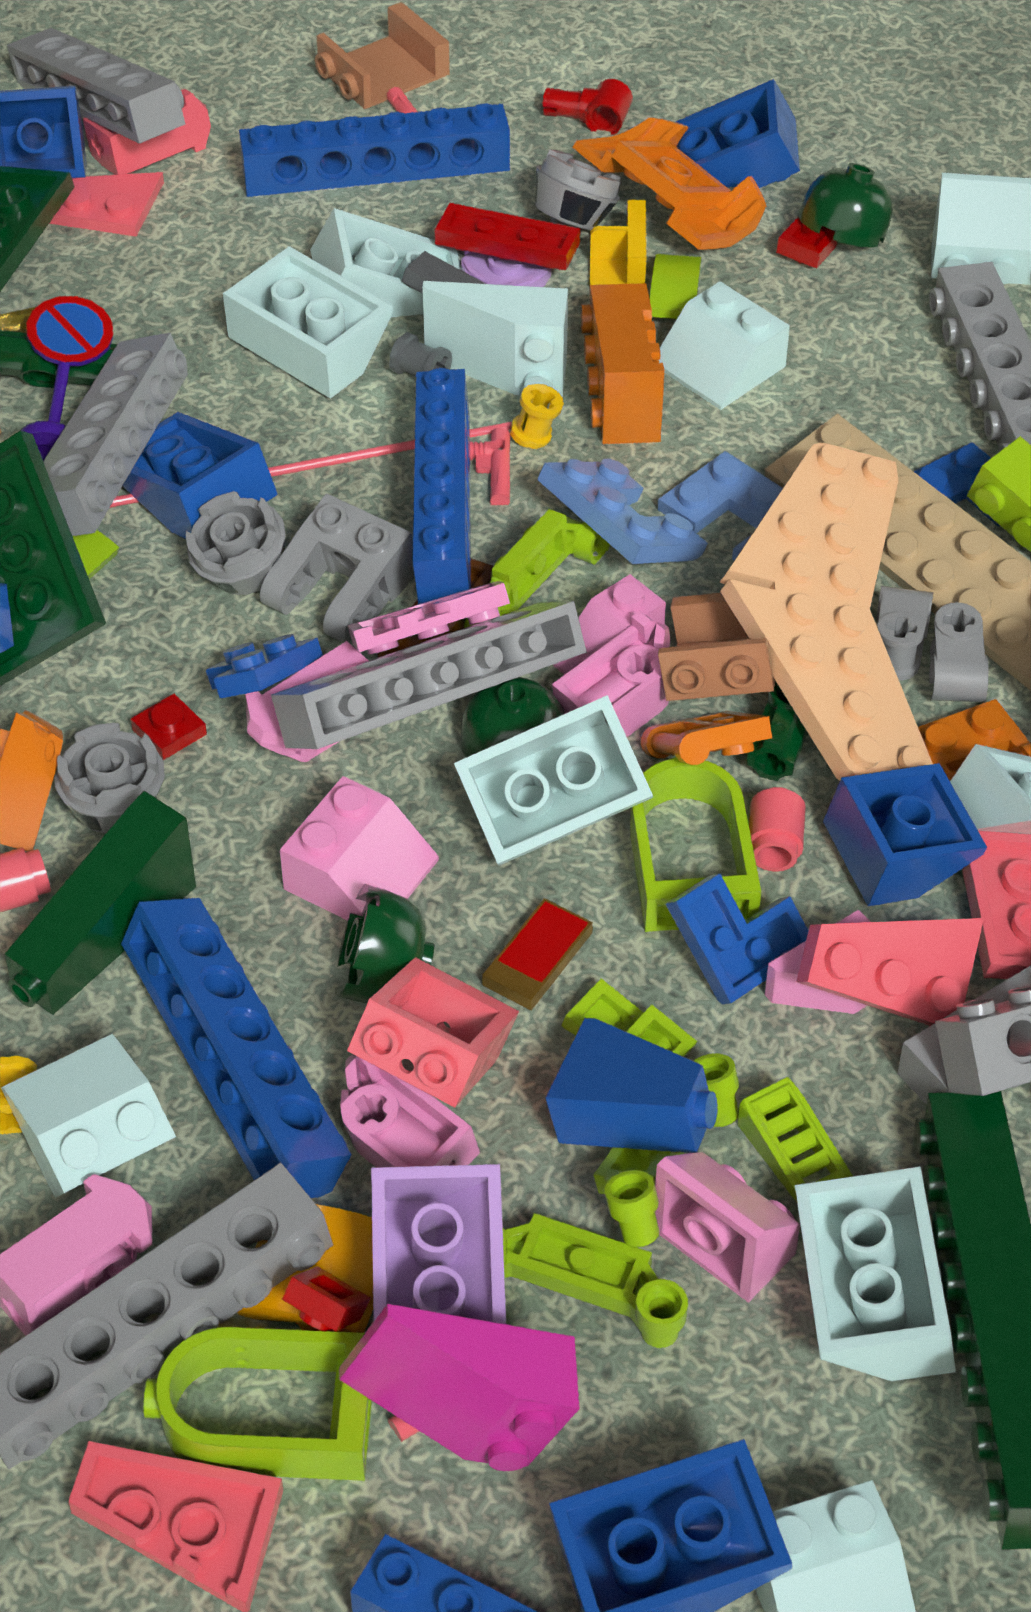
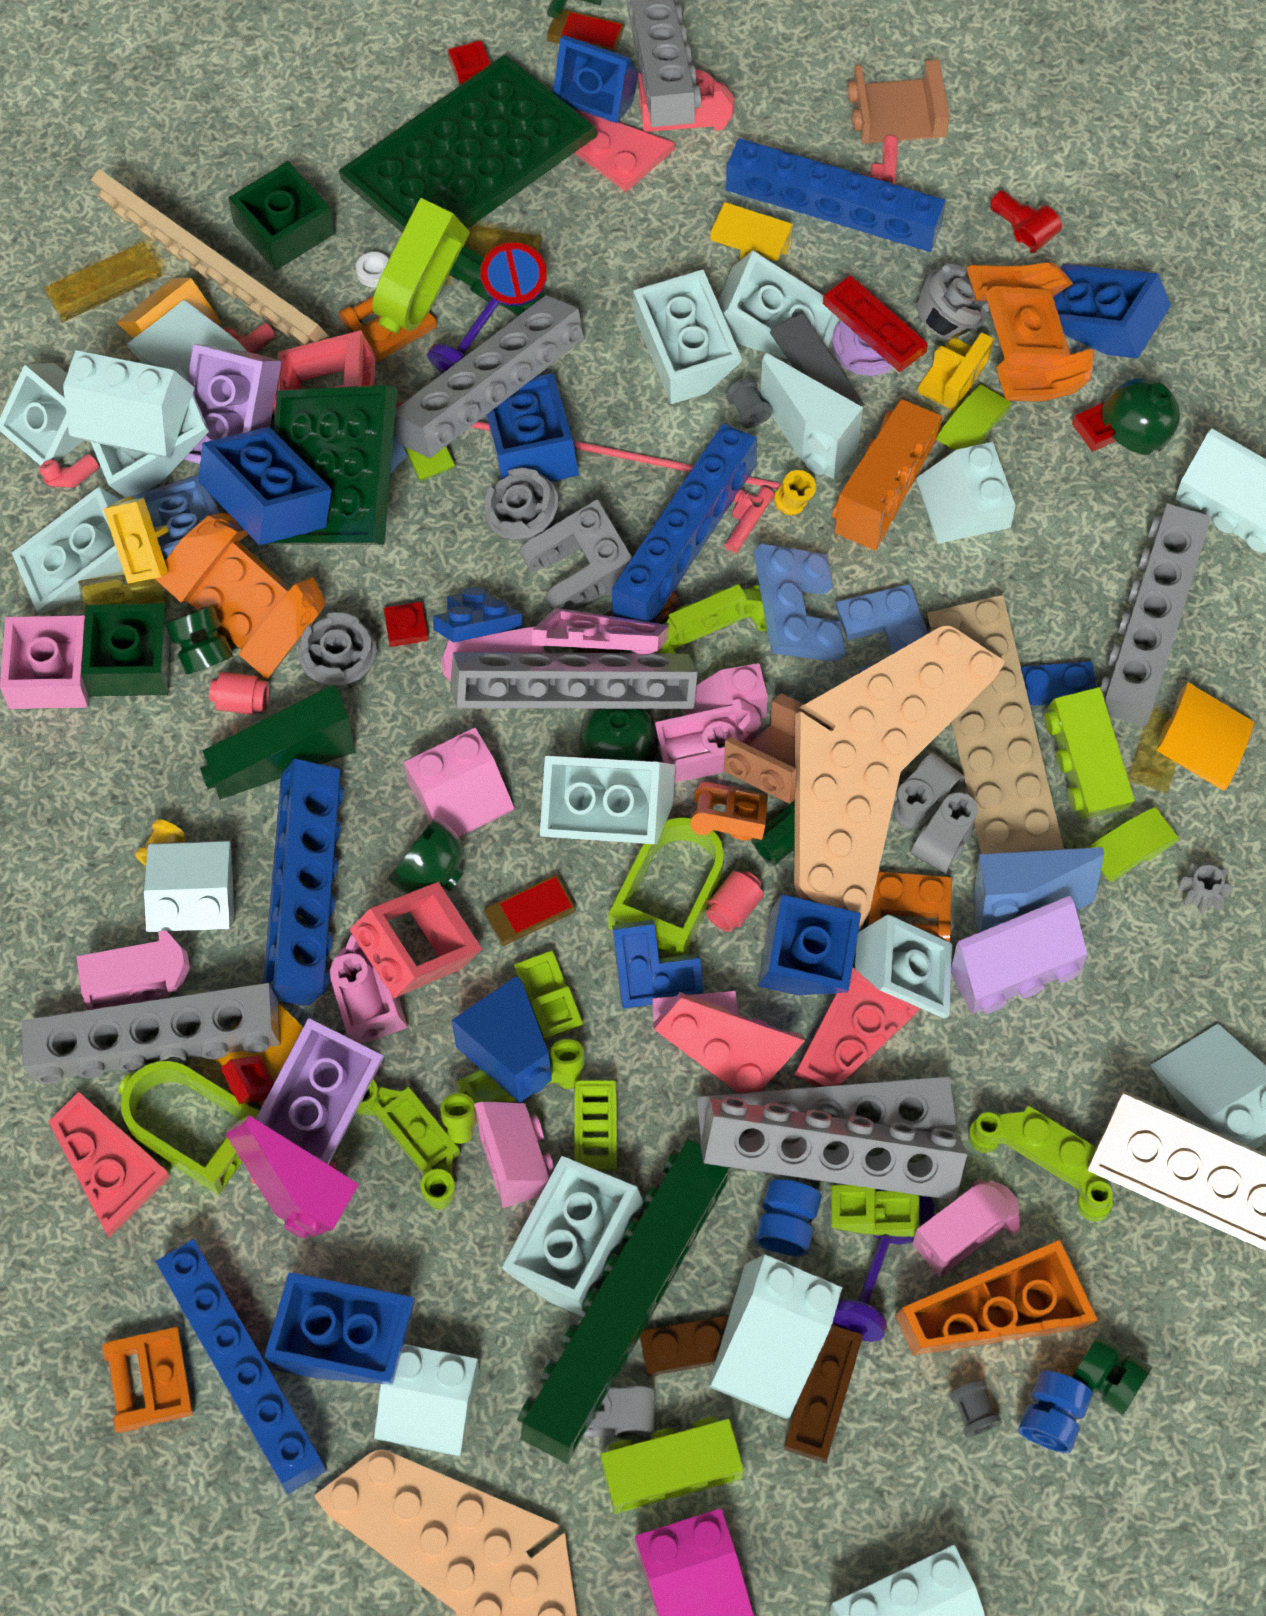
camera: 30 degrees right, 15 degrees up
(306, 207) = (752, 232): none -> yellow panel

